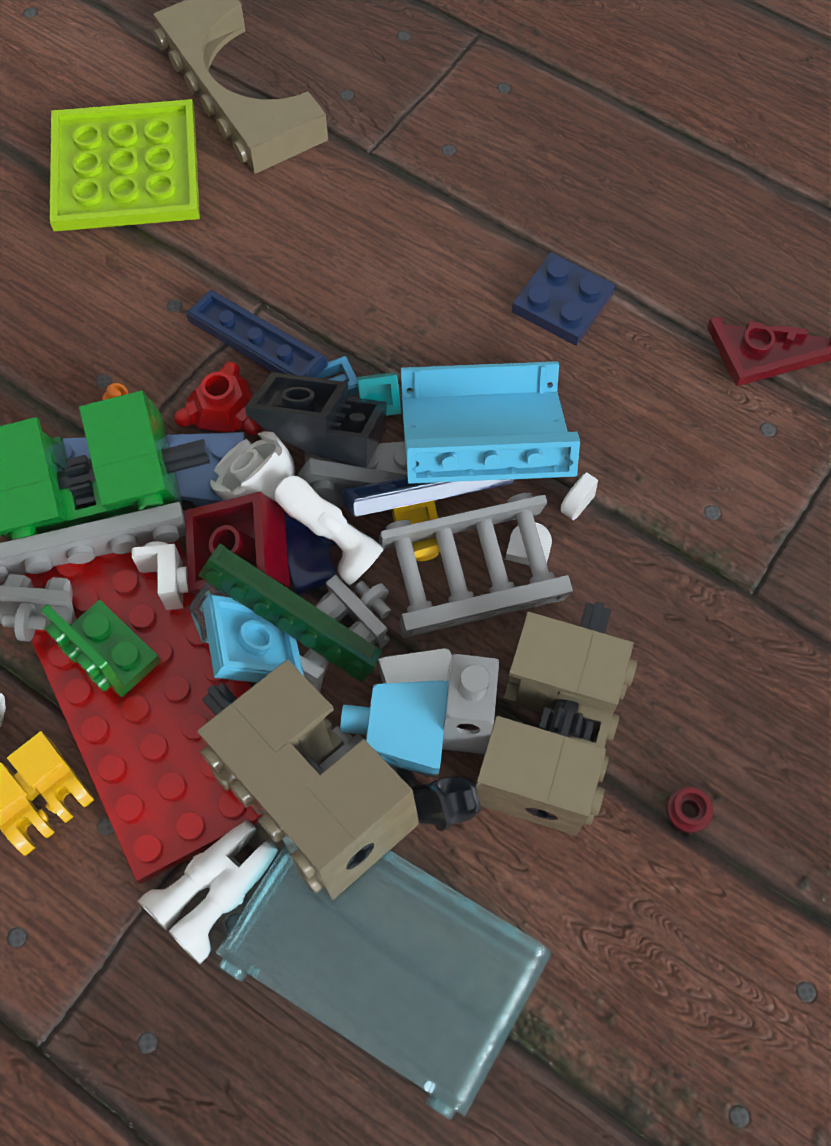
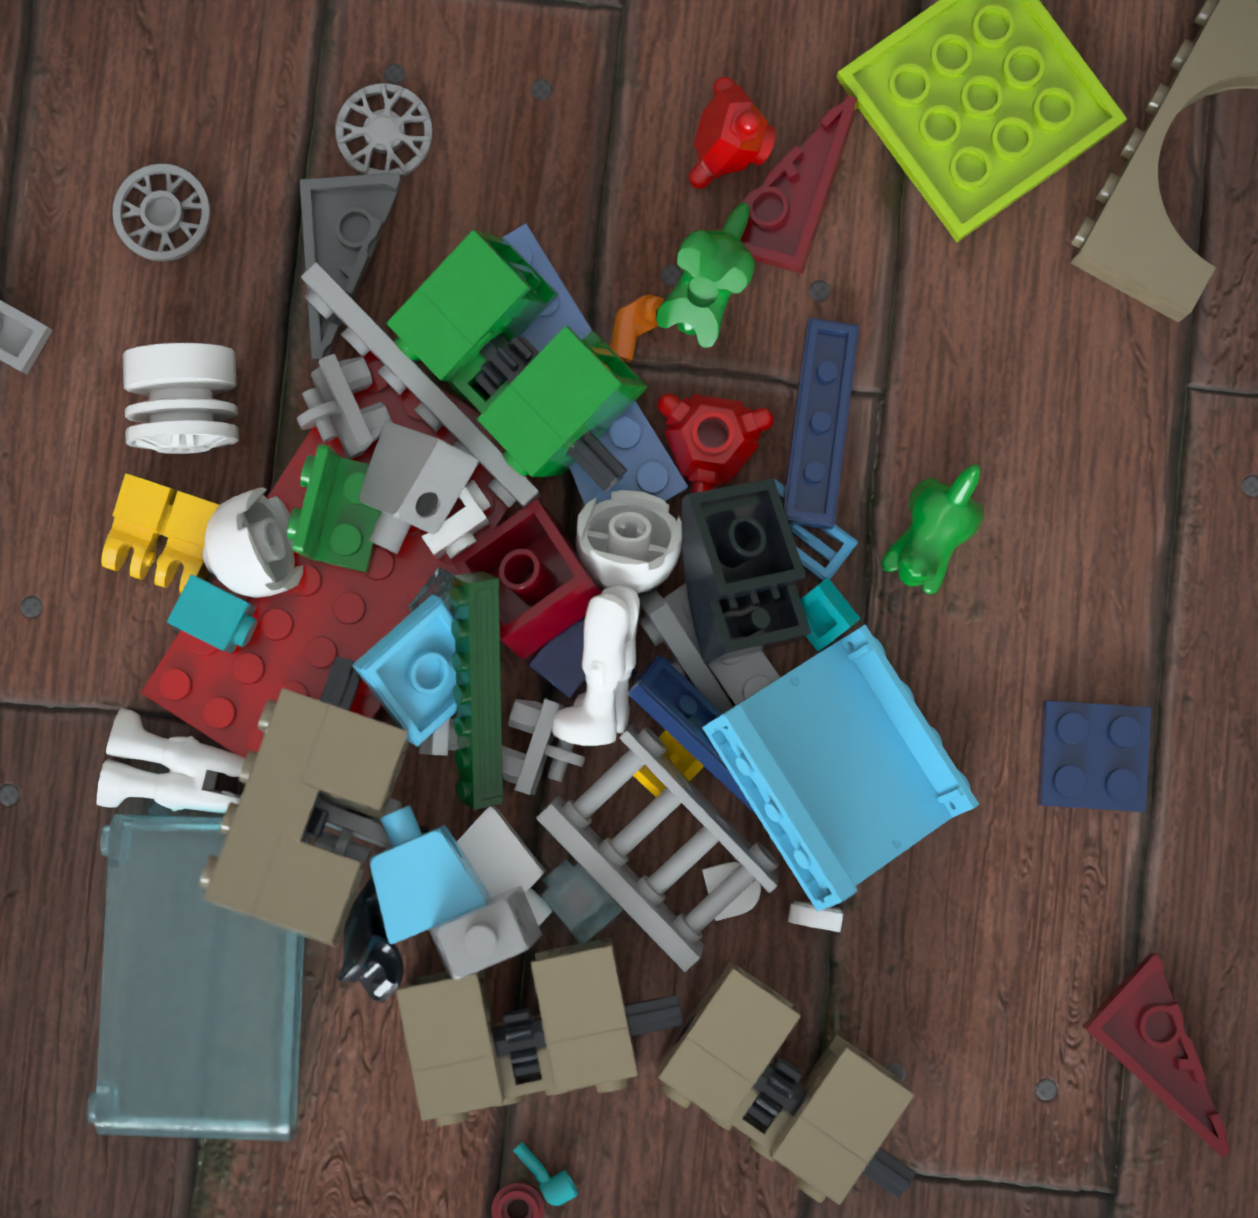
camera: 60 degrees right, 20 degrees up
(40, 293) = (729, 135): none -> red rock
(81, 722) = (250, 545): none -> white cylinder
(111, 293) = (795, 193): none -> dark red wing
(114, 779) = (214, 615): none -> teal brick
(115, 576) = (412, 483): none -> light grey torso
(117, 340) = (712, 270): none -> green animal
(362, 301) = (940, 522): none -> green animal
(484, 637) = (579, 900): none -> clear light blue window
(687, 774) = (555, 1189): none -> teal hand
(722, 560) = (815, 1128): none -> dark tan piece

